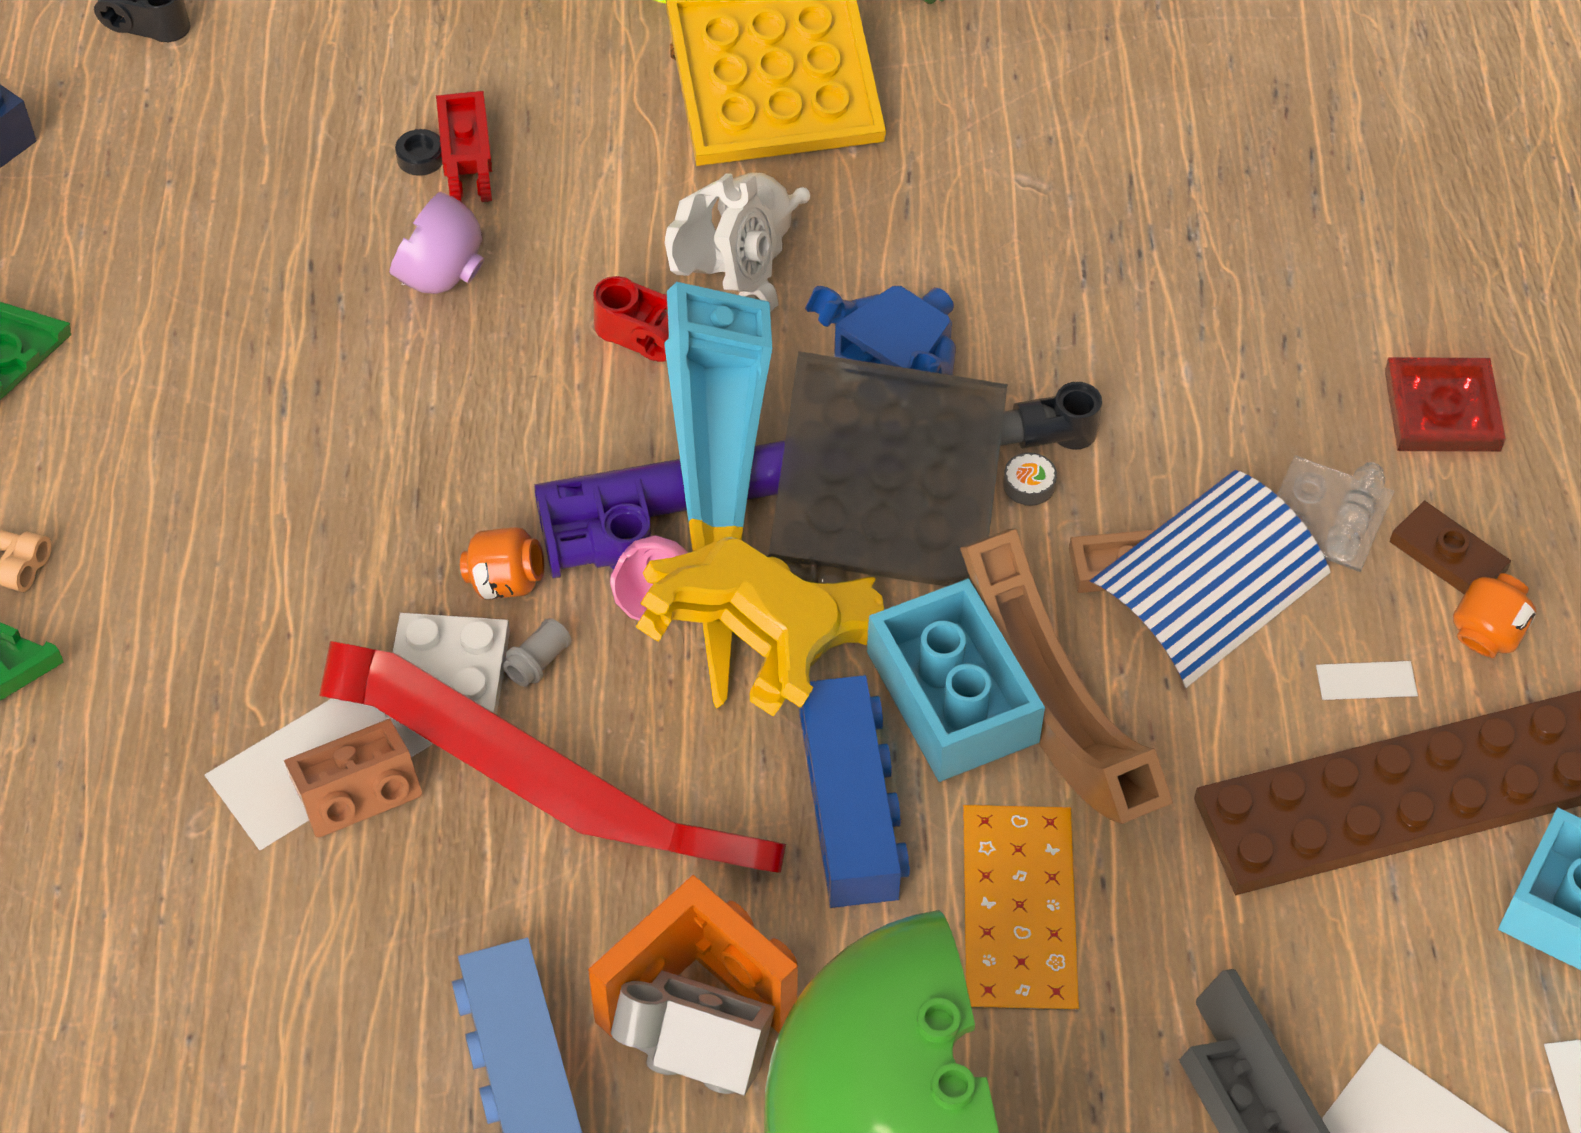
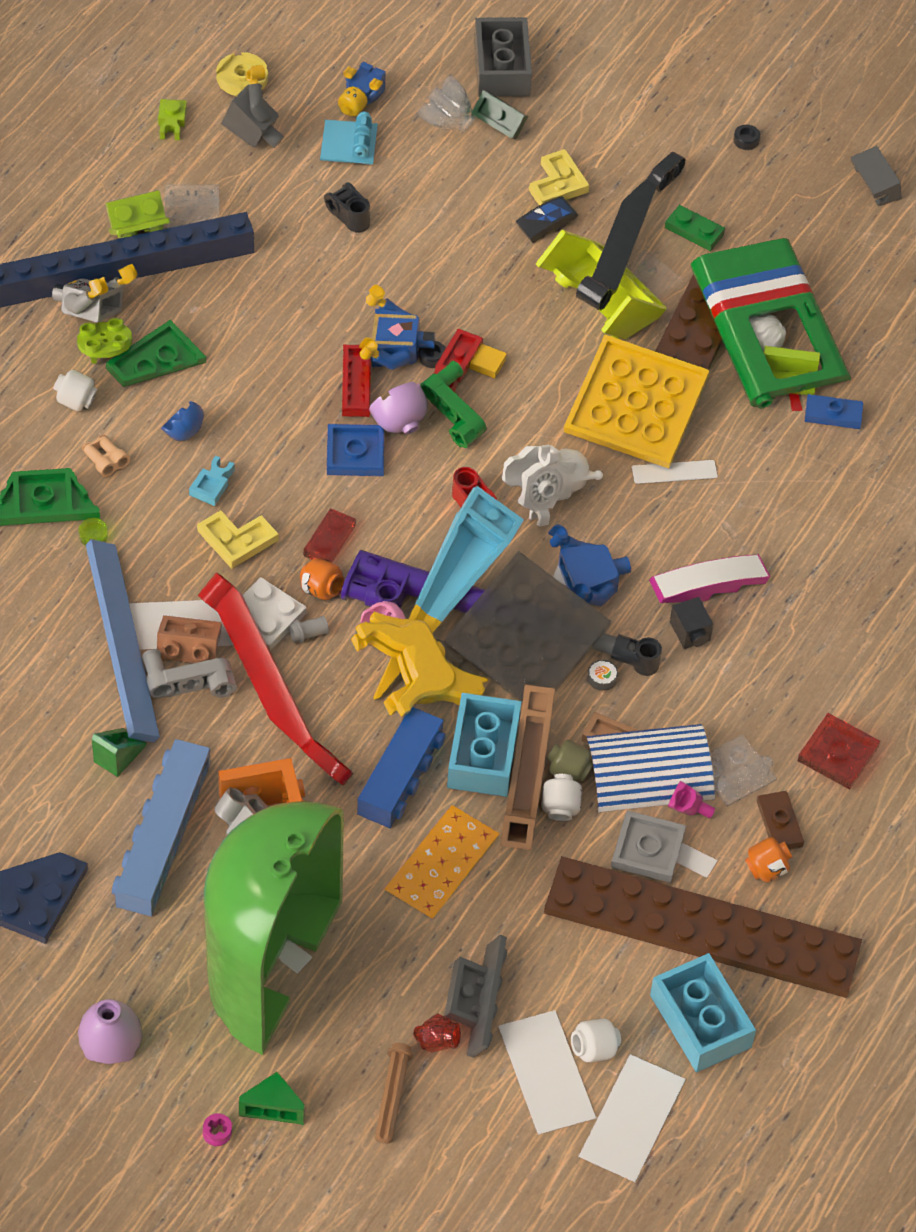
camera: 30 degrees right, 0 degrees up
(66, 690) = (93, 529): none -> clear neon green tile
(105, 440) = (185, 422): none -> blue hair
(214, 510) = (212, 484): none -> medium azure plate
(246, 844) = (122, 641): none -> medium blue tile
(319, 583) = (237, 544): none -> light yellow plate
(335, 243) = (355, 383): none -> red plate
(347, 146) = (394, 334): none -> blue torso
(361, 1033) = (115, 750): none -> green slope
(405, 345) = (355, 450): none -> blue tile
(436, 810) = (188, 678): none -> light grey beam
(461, 493) = (329, 536): none -> clear red plate
(510, 121) = (488, 361): none -> yellow tile
(548, 217) = (467, 423): none -> green beam
(899, 140) = (677, 472): none -> white sticker
(1069, 259) = (709, 577): none -> white slope
(1097, 633) = (570, 759): none -> olive head
(1098, 334) = (691, 623): none -> black brick
(1129, 693) = (561, 797): none -> white head
(1308, 697) = (648, 846): none -> light grey plate
(1311, 594) = (689, 801): none -> dark pink piece
(1492, 1054) = (595, 1040): none -> white head

